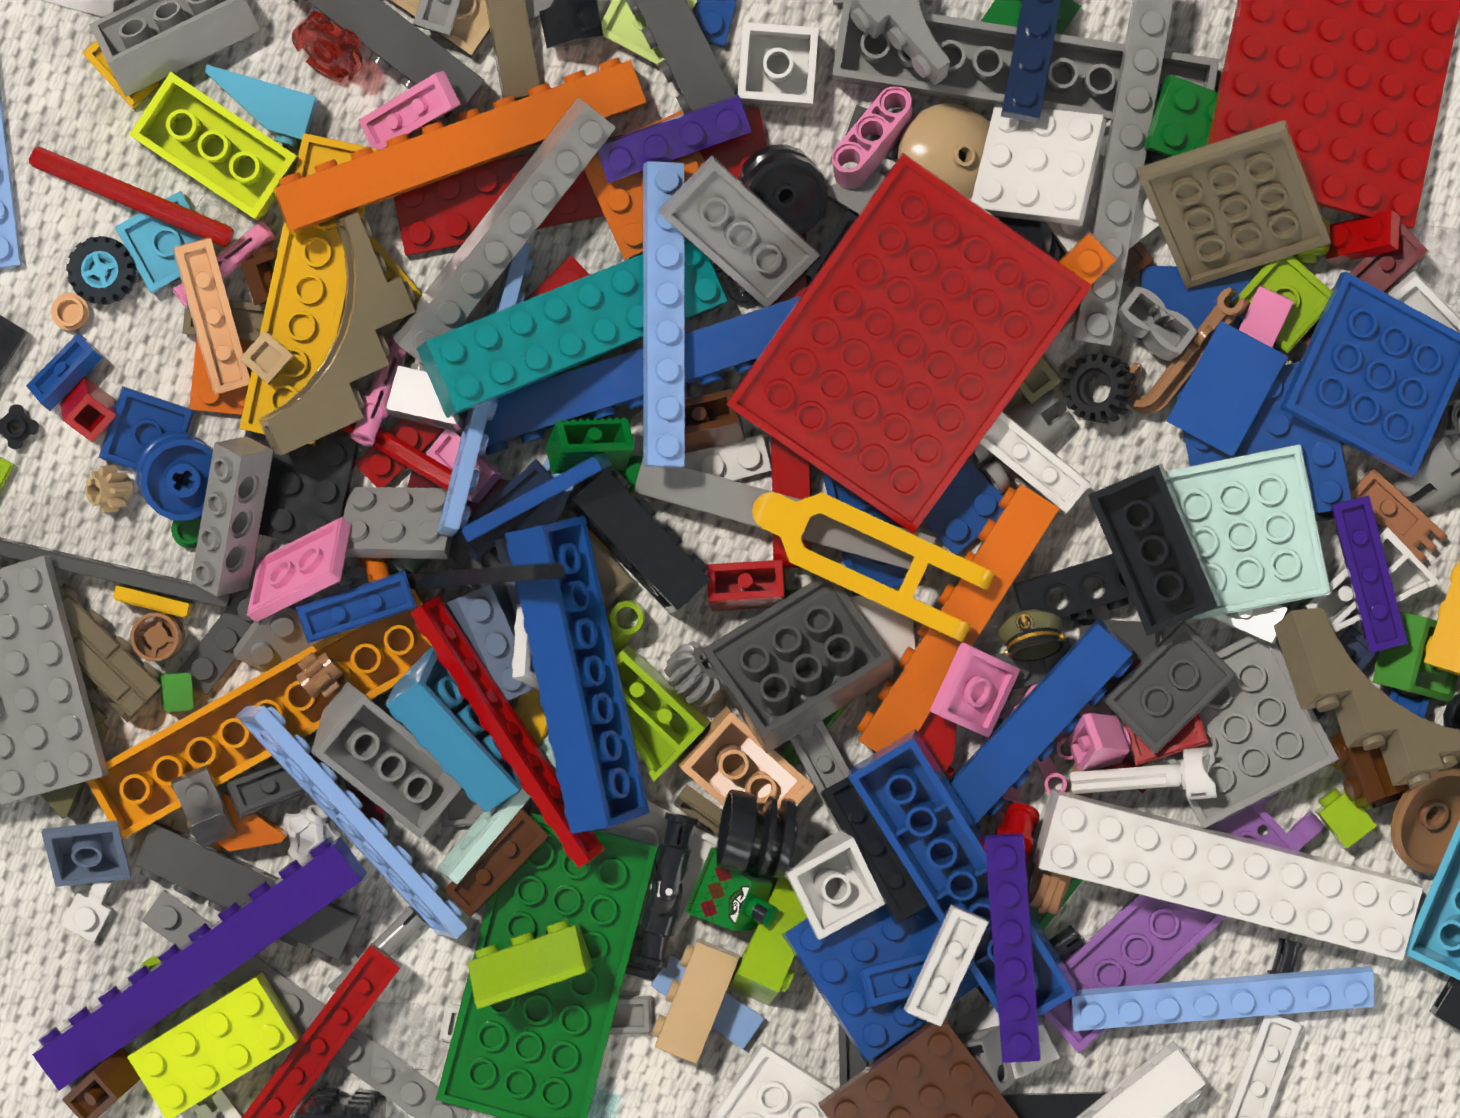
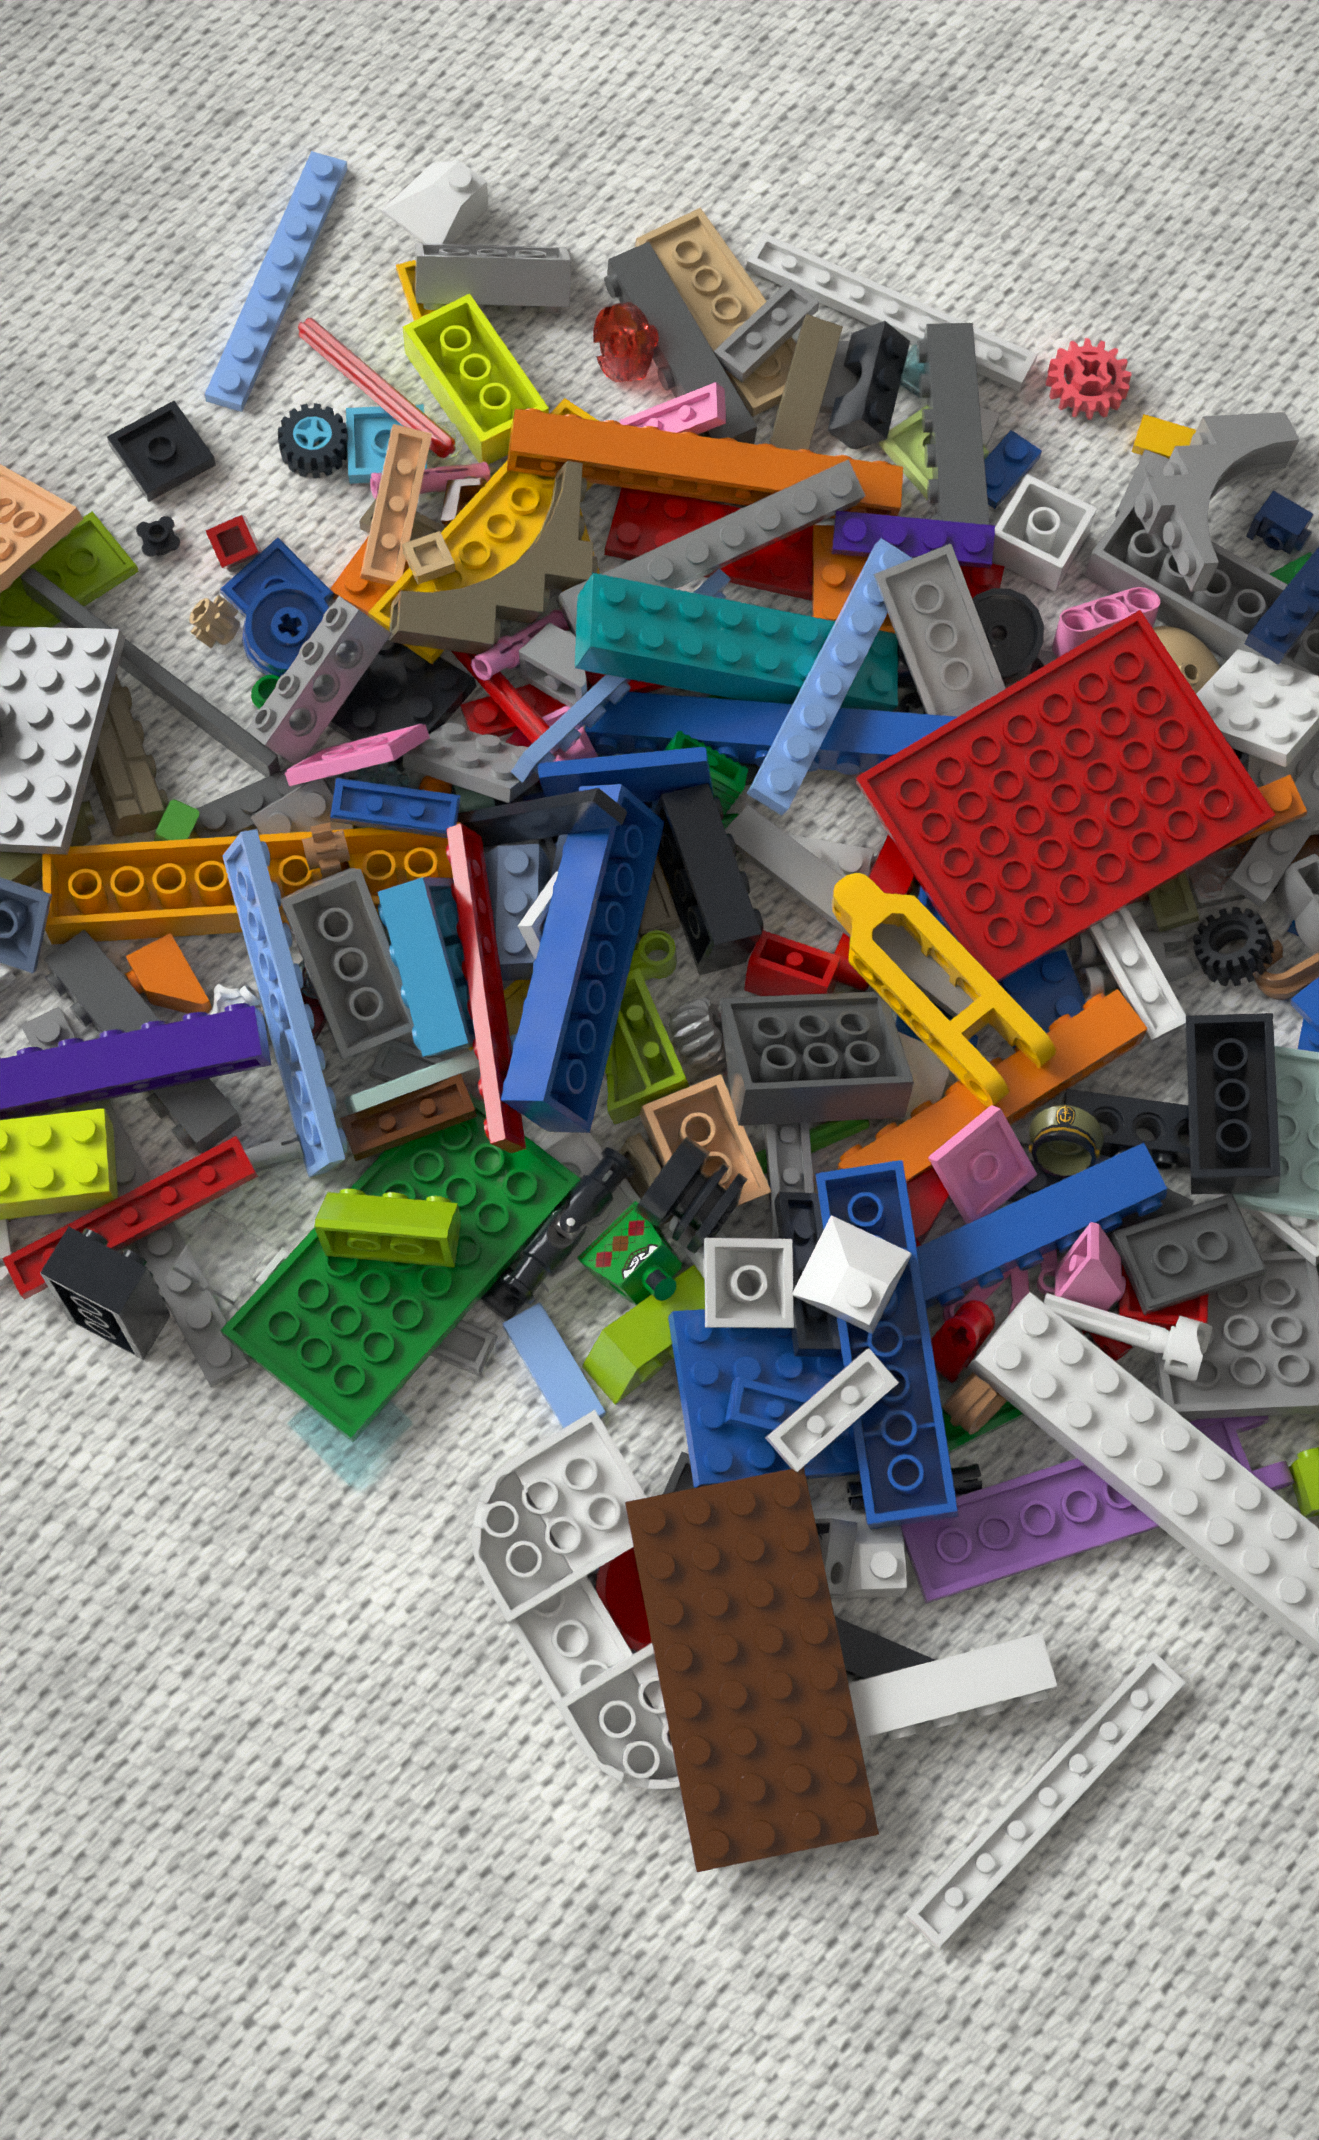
camera: 25 degrees right, 20 degrees down
(64, 371) = (248, 502): blue plate -> none
(70, 311) = (264, 464): light nougat plate -> none
(153, 601) = (200, 738): yellow tile -> none
(157, 636) = (187, 767): medium nougat wheel -> none
(203, 806) = (143, 929): flat silver slope -> none
(265, 788) = (215, 948): dark grey tile -> none
(273, 106) = (546, 366): medium azure slope -> none
(695, 1000) = (542, 1352): tan brick -> none
(711, 422) = (824, 809): reddish brown brick -> none
(913, 850) = (851, 1274): none -> white slope
(1012, 947) = (911, 1428): dark purple plate -> none
(1222, 998) = (1112, 1610): light blue plate -> none
(1285, 957) = (1192, 1611): black pin -> none

